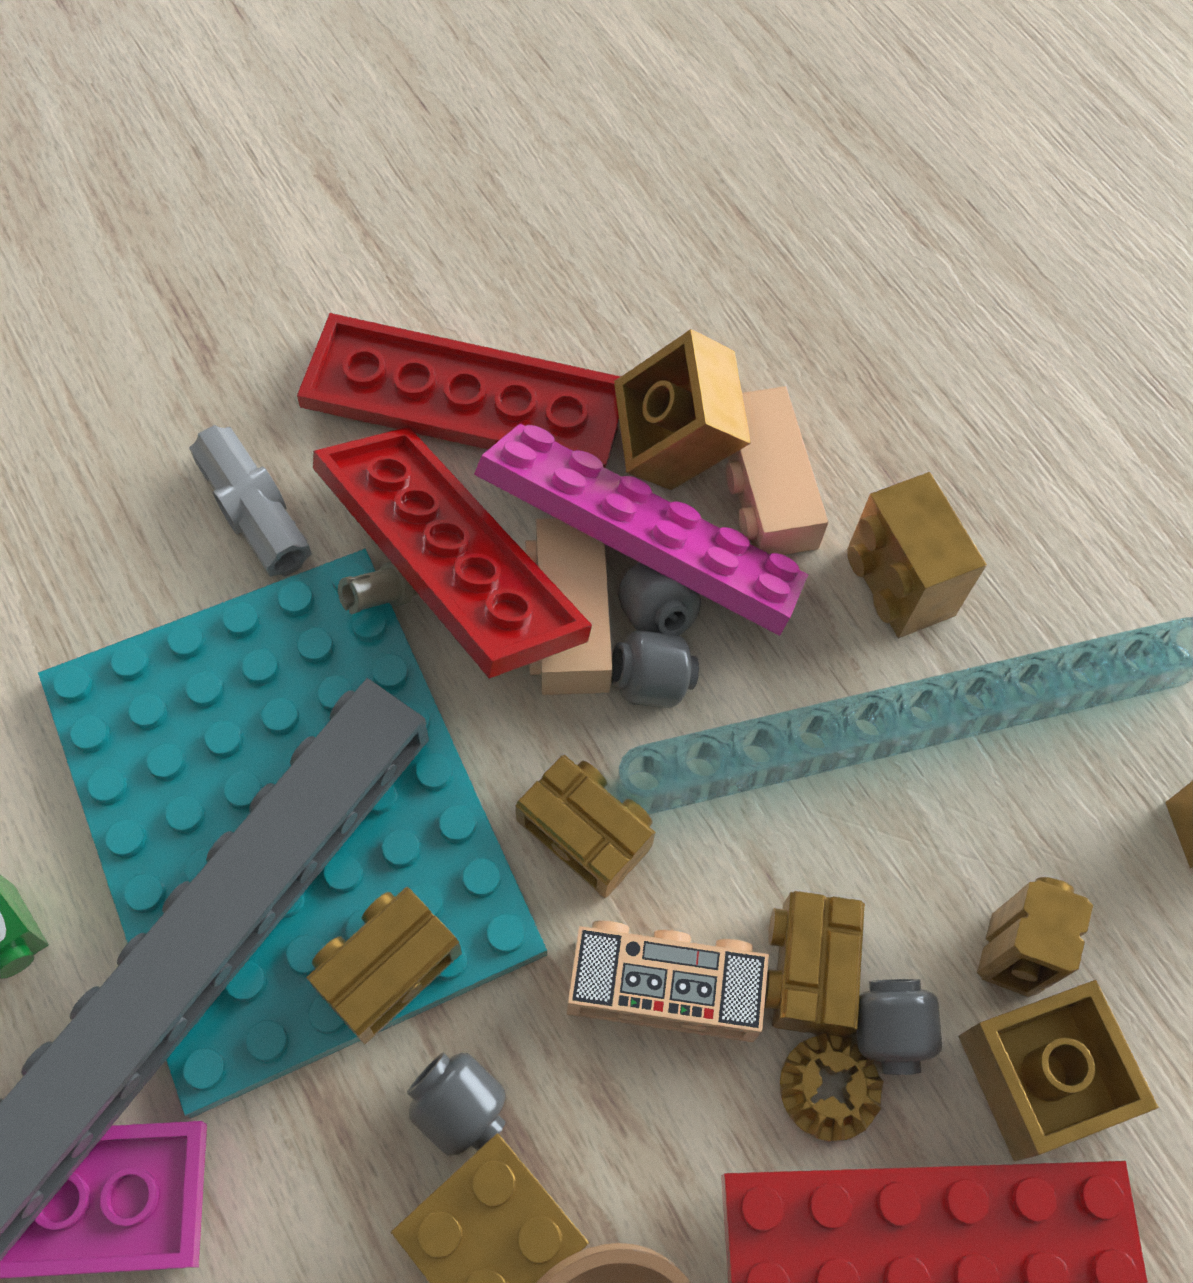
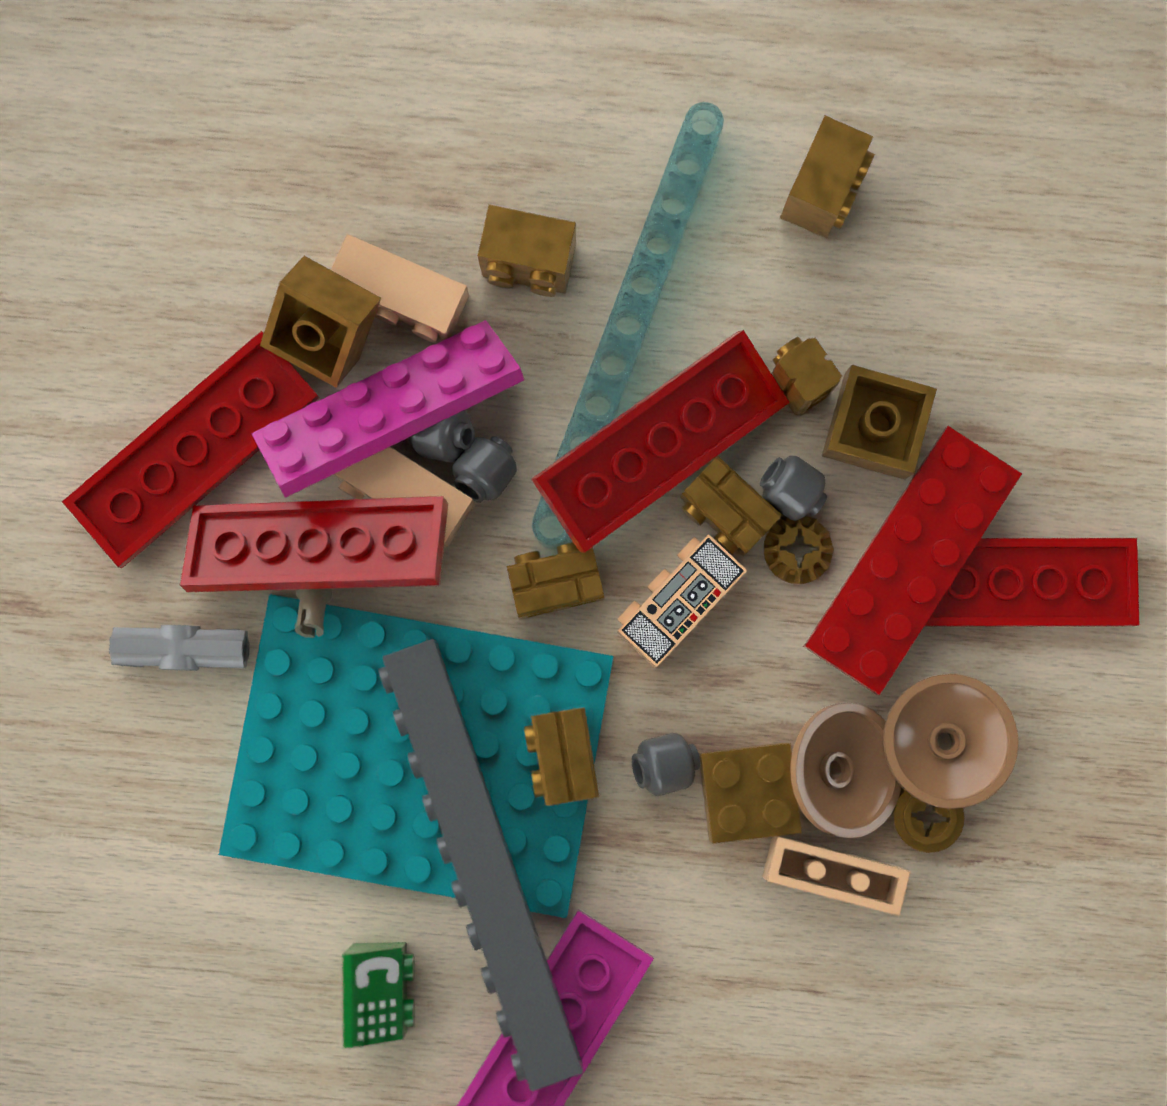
camera: 50 degrees left, 20 degrees up
(832, 826) = (660, 441): none -> red plate

